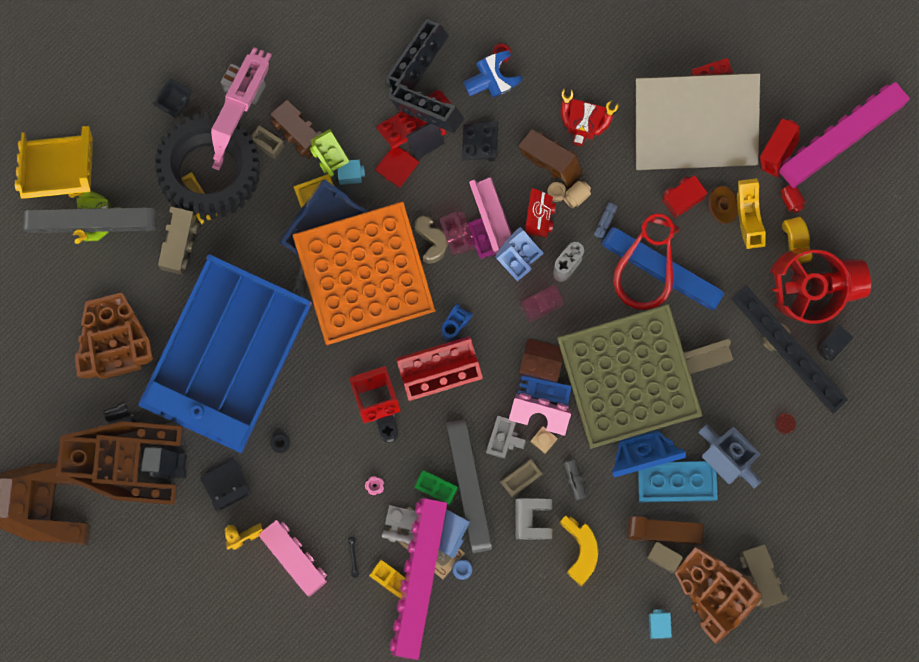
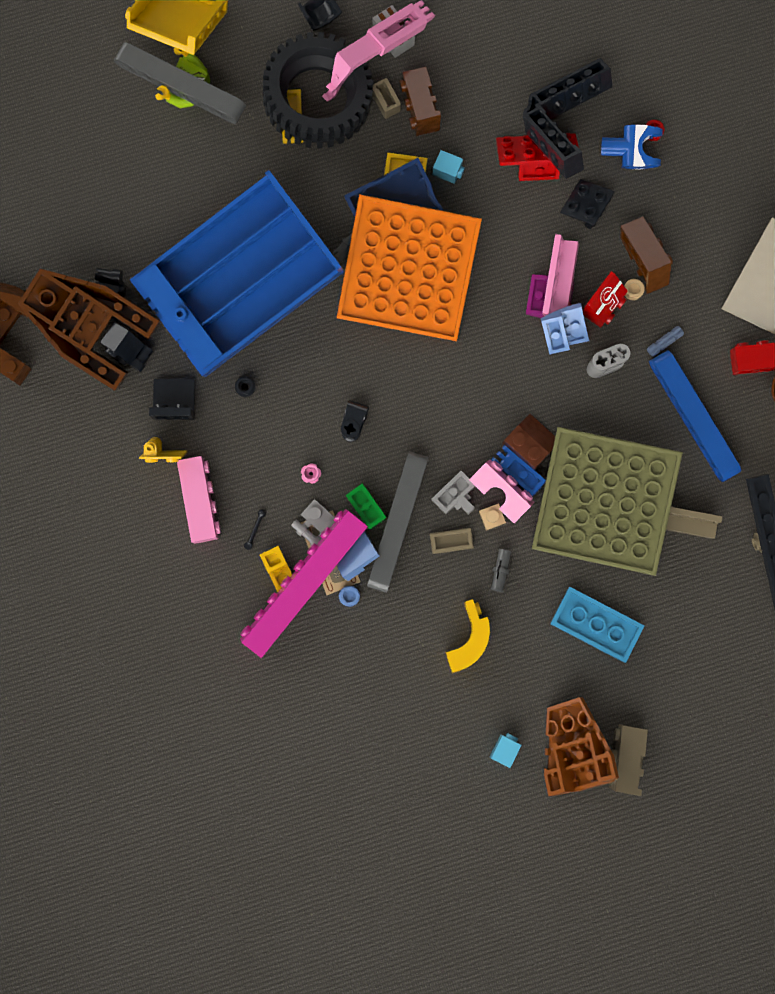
camera: 30 degrees right, 5 degrees up
(111, 339) = (141, 206): dark orange wedge -> none
(178, 241) = (253, 147): dark tan wedge -> none
(329, 152) = (437, 135): lime bracket -> none
(379, 378) = (349, 372): red window -> none
(397, 166) = (495, 185): red piece -> none
(425, 140) = (535, 173): black piece -> none
(434, 236) = (495, 271): dark tan animal -> none
(439, 368) = (430, 396): red brick -> none
(457, 233) = (518, 278): clear pink brick -> none
(458, 320) = (473, 360): blue piece -> none
(524, 519) = (434, 579): light grey connector -> none
(541, 303) = (561, 387): clear pink brick -> none
(577, 194) = (652, 301): tan brick -> none
(584, 118) = (699, 233): red torso -> none
(644, 452) = (581, 580): blue wing -> none
(664, 531) = (559, 665): reddish brown beam -> none
(664, 557) = (545, 689): dark tan piece -> none
(669, 268) = (700, 421): red animal -> none
(731, 455) = (662, 628): sand blue brick -> none
(785, 424) = (731, 626): clear red tile -> none

